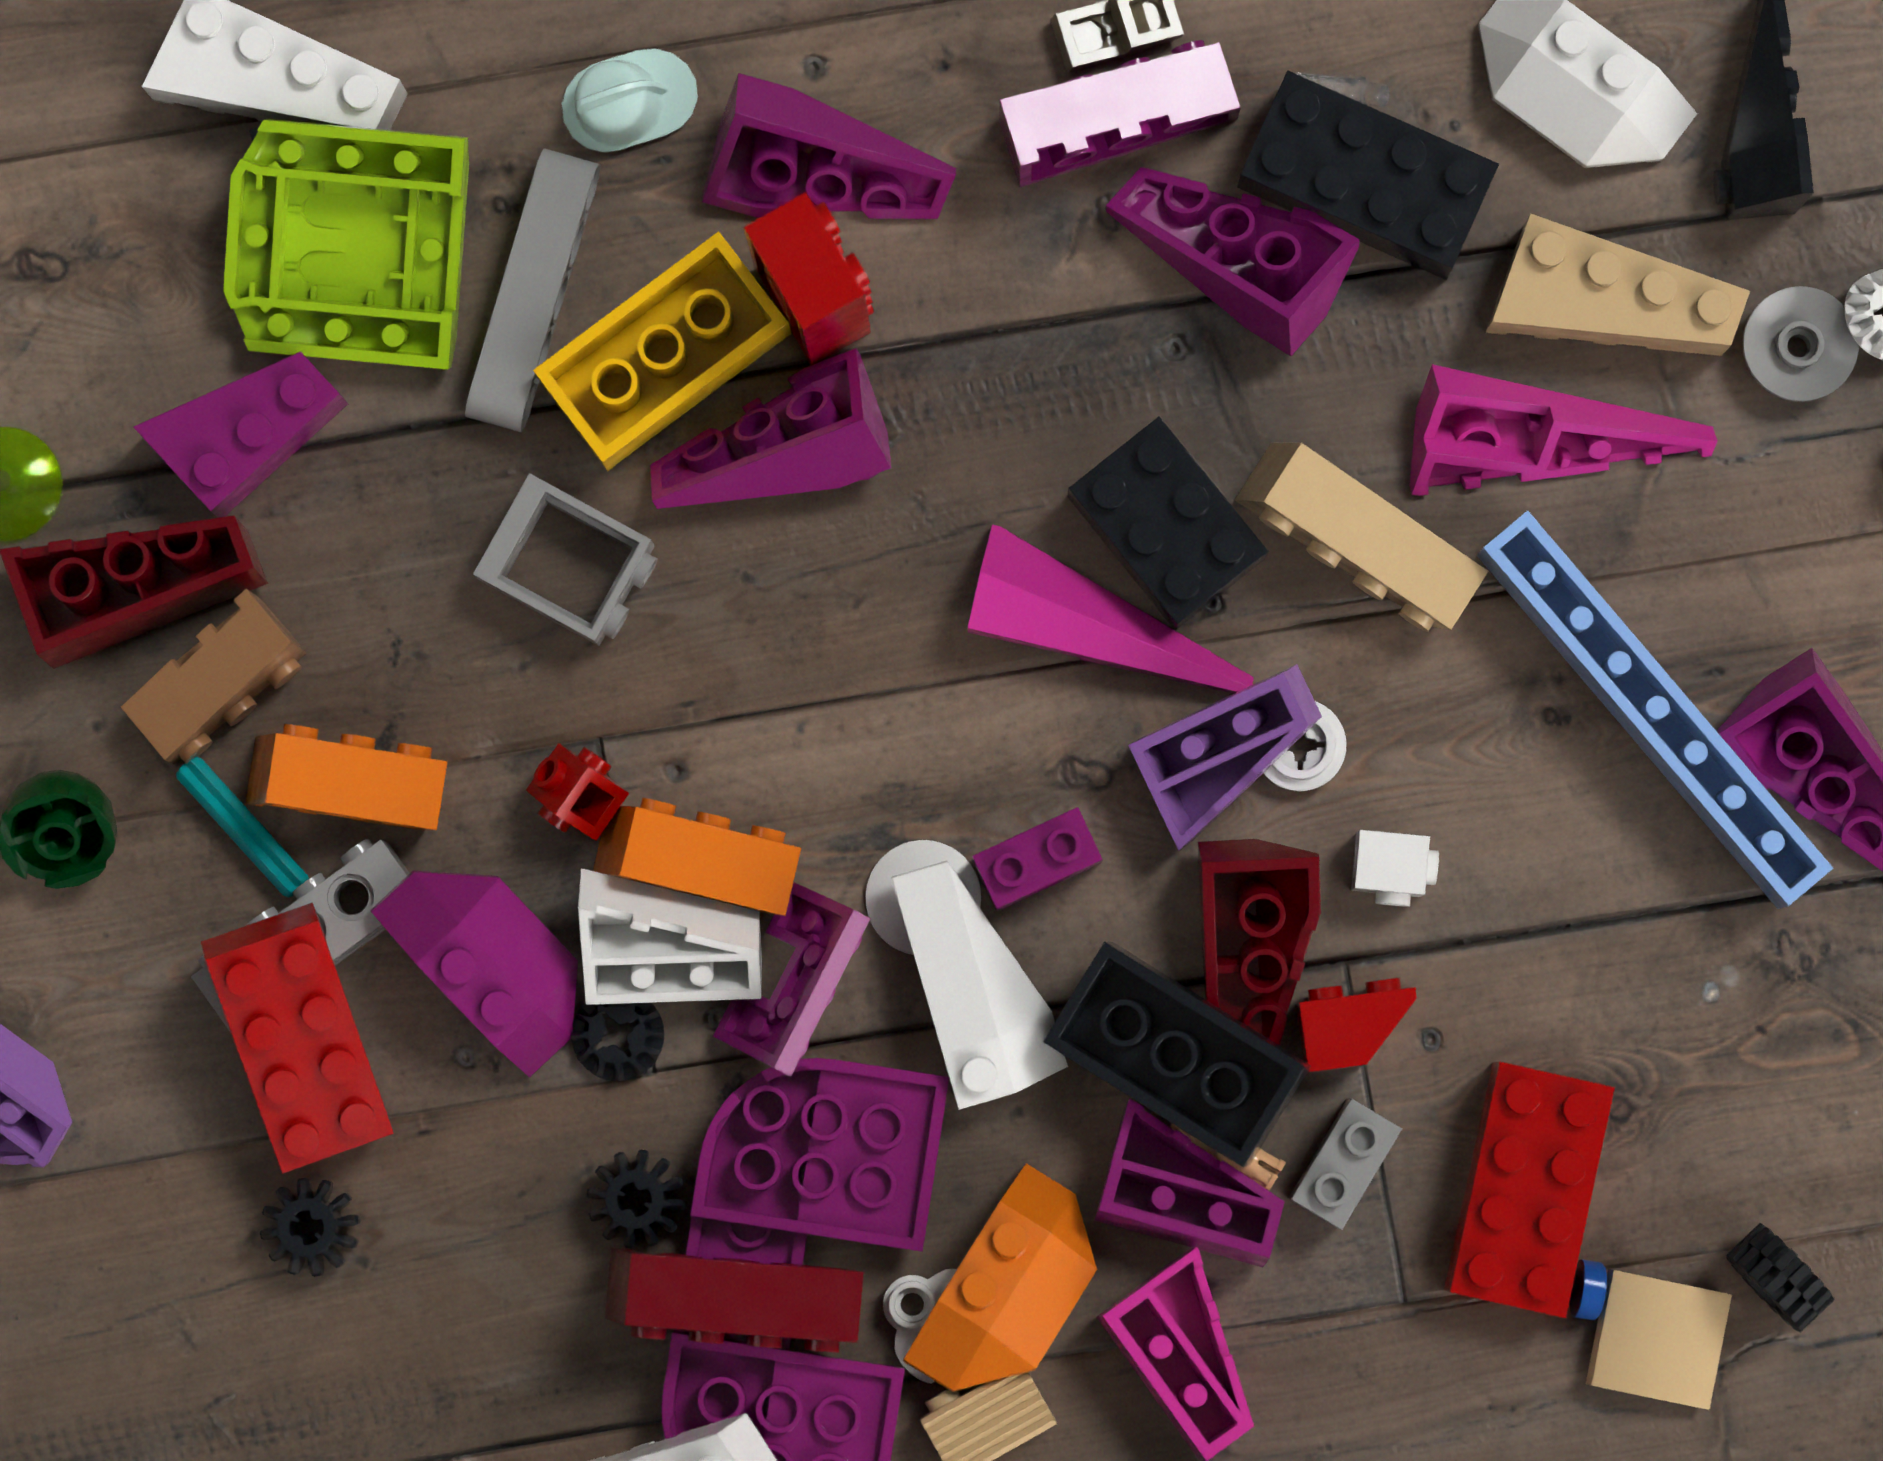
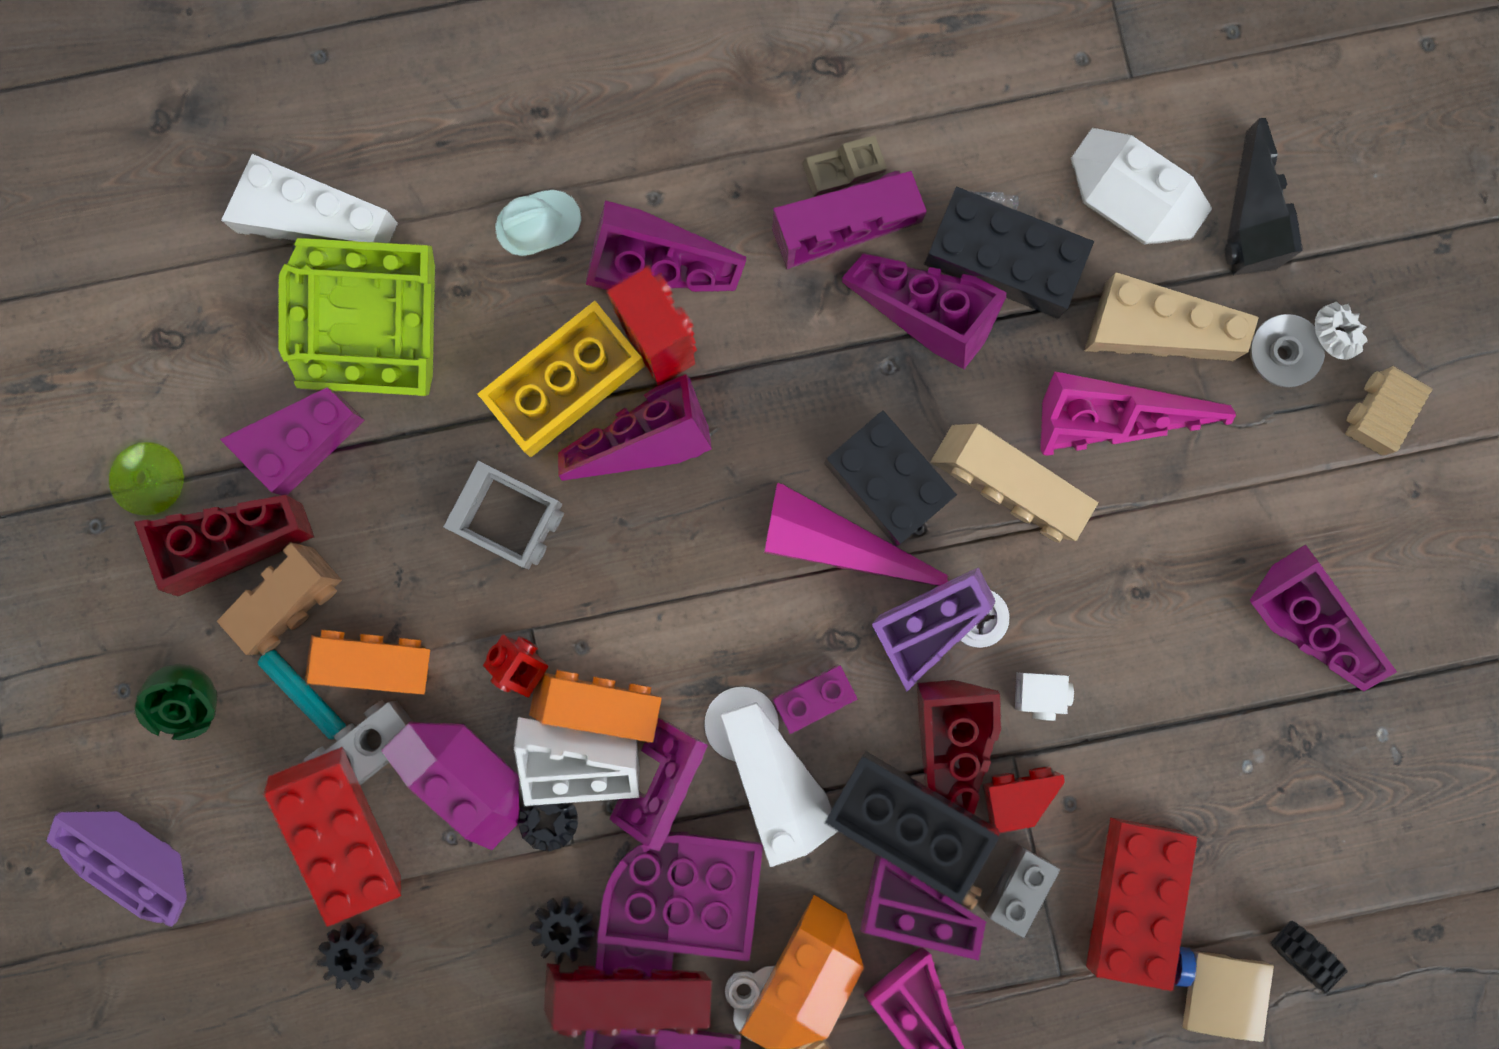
camera: 10 degrees left, 0 degrees up
(532, 290) = (478, 343): light grey beam -> none
(1654, 711) = (1209, 590): light blue brick -> none

